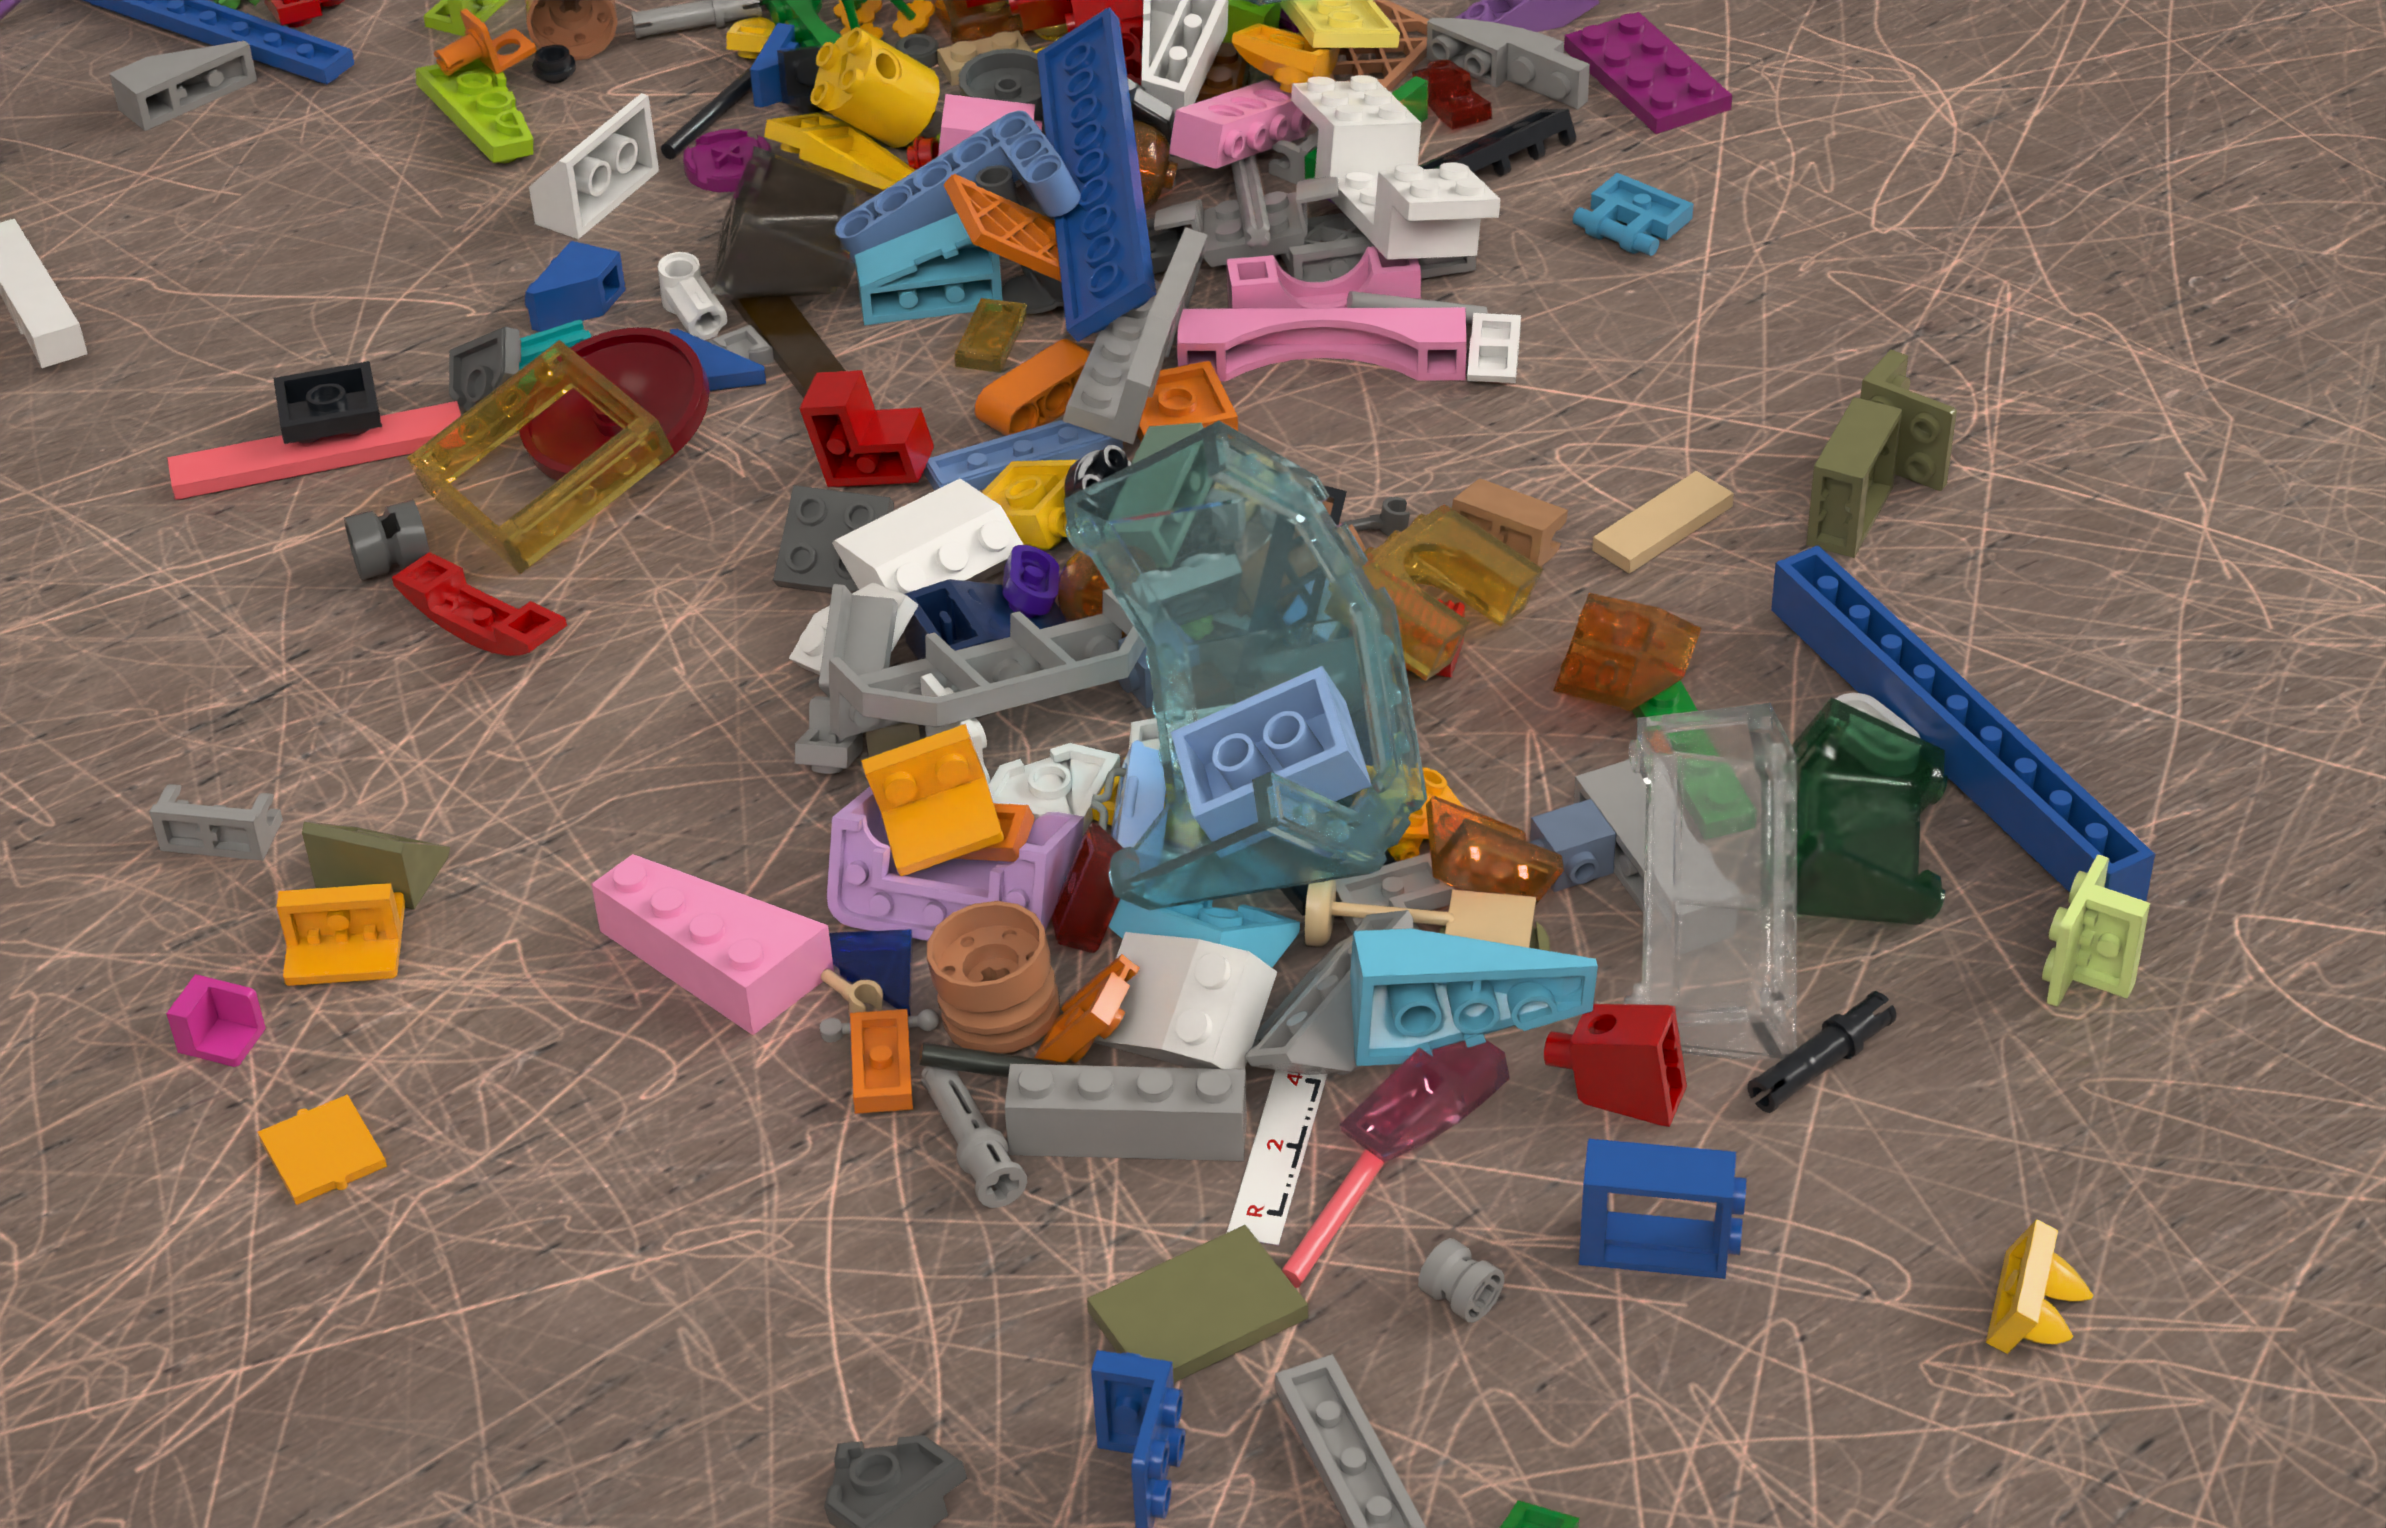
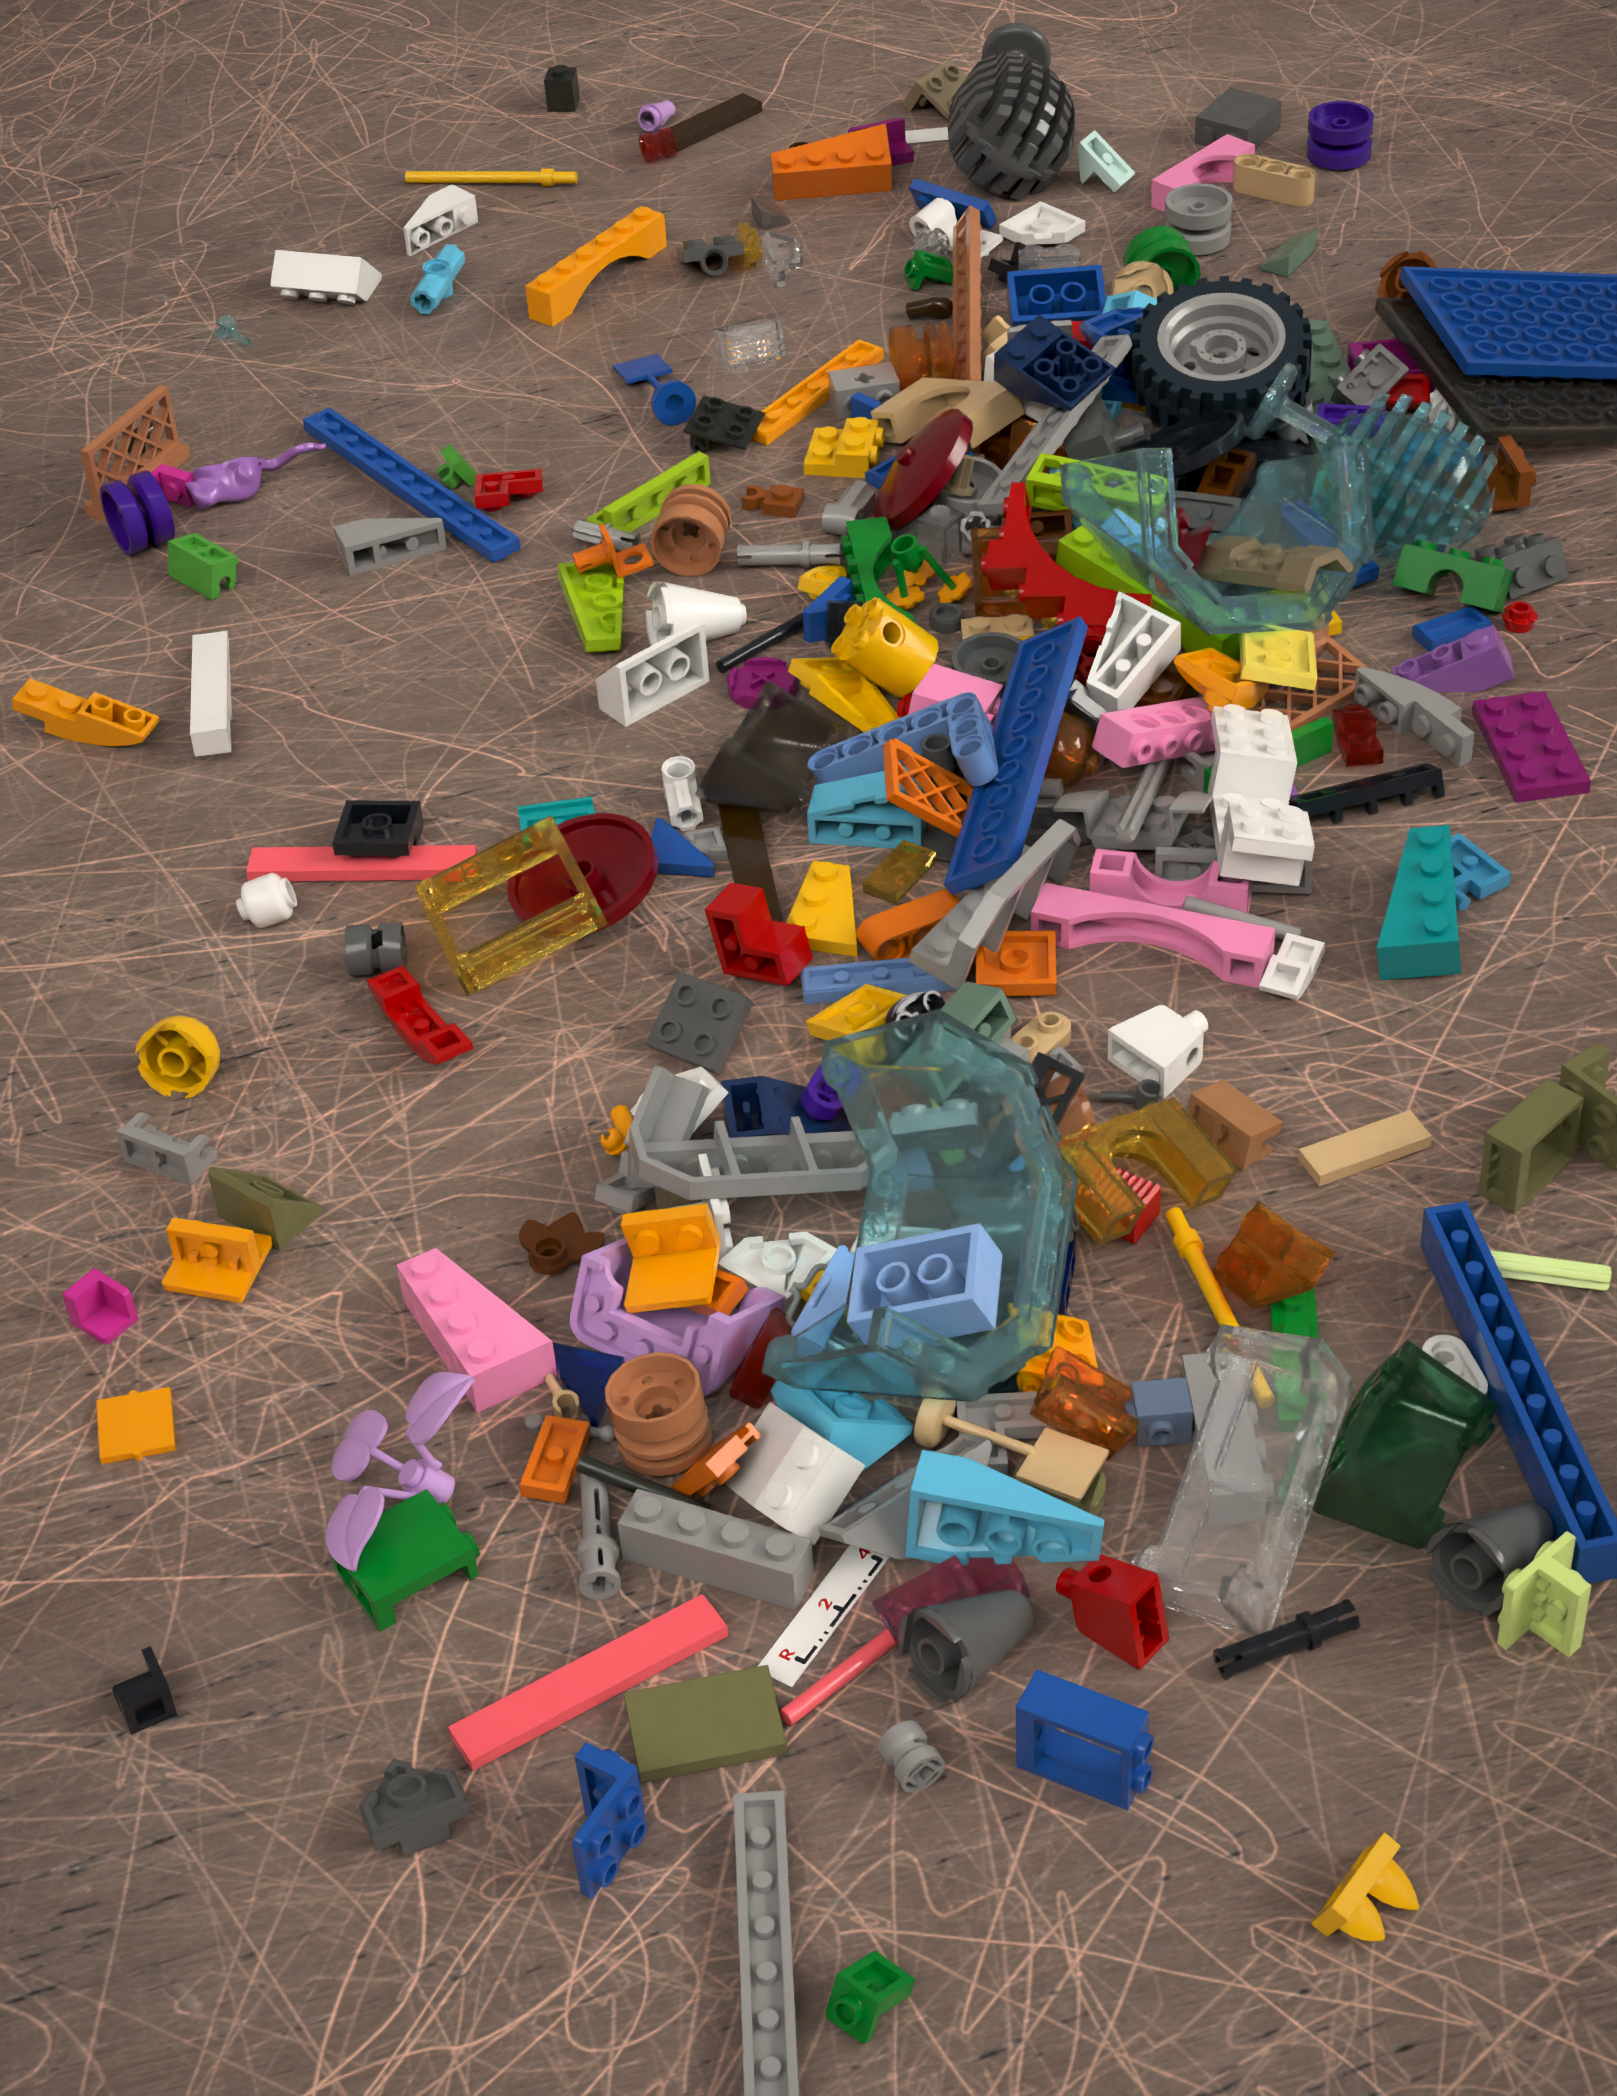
camera: 20 degrees right, 0 degrees up
(188, 711) = (178, 1055): none -> yellow cylinder
(216, 513) = (266, 900): none -> white head
(449, 29) = (590, 533): none -> light grey axle
(483, 365) = (501, 820): dark grey plate -> none
(487, 1453) = (145, 1698): none -> black panel
(553, 64) = (665, 572): black plate -> none
(575, 286) = (600, 768): blue slope -> none
(597, 91) = (680, 606): none -> white cone
(684, 1178) = (359, 1514): none -> lavender plant
(742, 1213) = (406, 1553): none -> green panel
(769, 823) = (557, 1245): none -> reddish brown plate
(792, 681) = (622, 1121): none -> light orange arm
(920, 378) = (827, 909): none -> yellow wing
(931, 540) = (769, 1040): white slope -> none
(1032, 1300) = (587, 1682): none -> coral tile
(1384, 460) = (1158, 1046): none -> white torso
(1463, 1142) = (963, 1639): none -> dark grey cone
(1519, 666) = (1190, 1248): none -> yellow bar
(1626, 262) = (1421, 917): none -> teal wedge
(1939, 603) = (1553, 1270): none -> yellowish green axle
(2004, 912) = (1483, 1550): none -> dark grey cone

